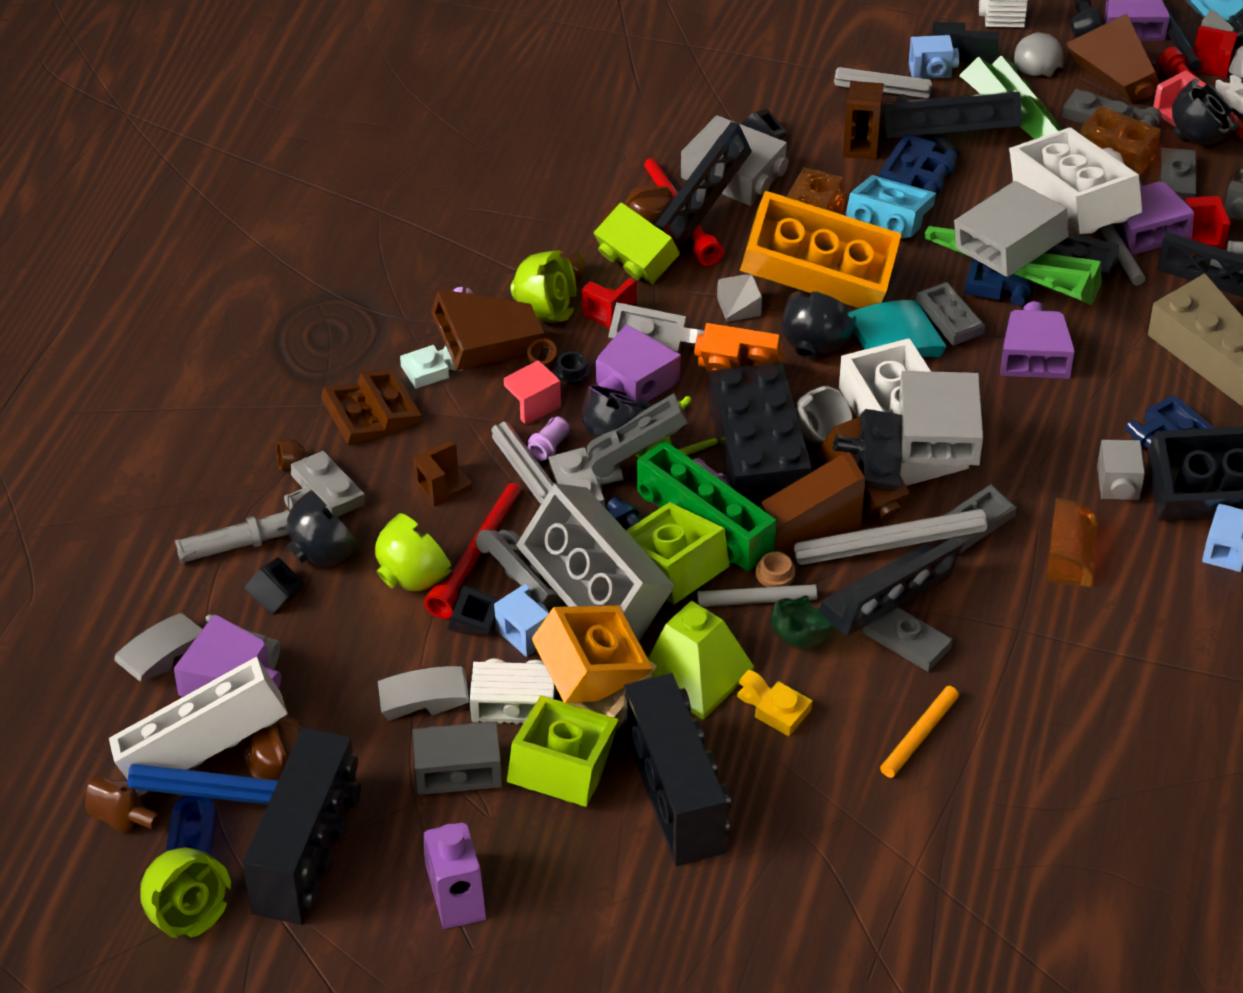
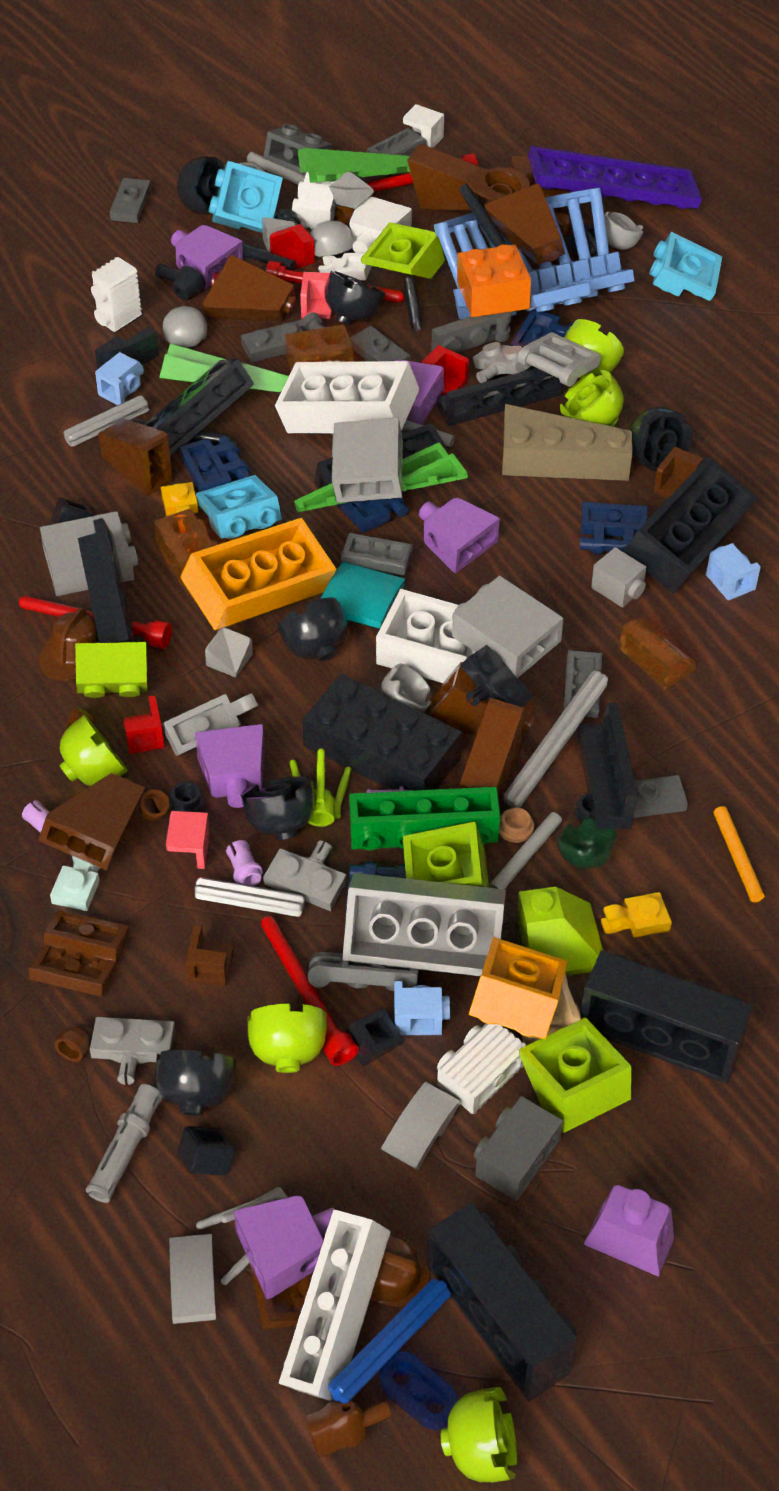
camera: 50 degrees left, 5 degrees up
(635, 436) = (324, 806): dark grey plate -> none
(735, 347) = (294, 694): orange plate -> none
(856, 171) = (179, 498): none -> yellow plate

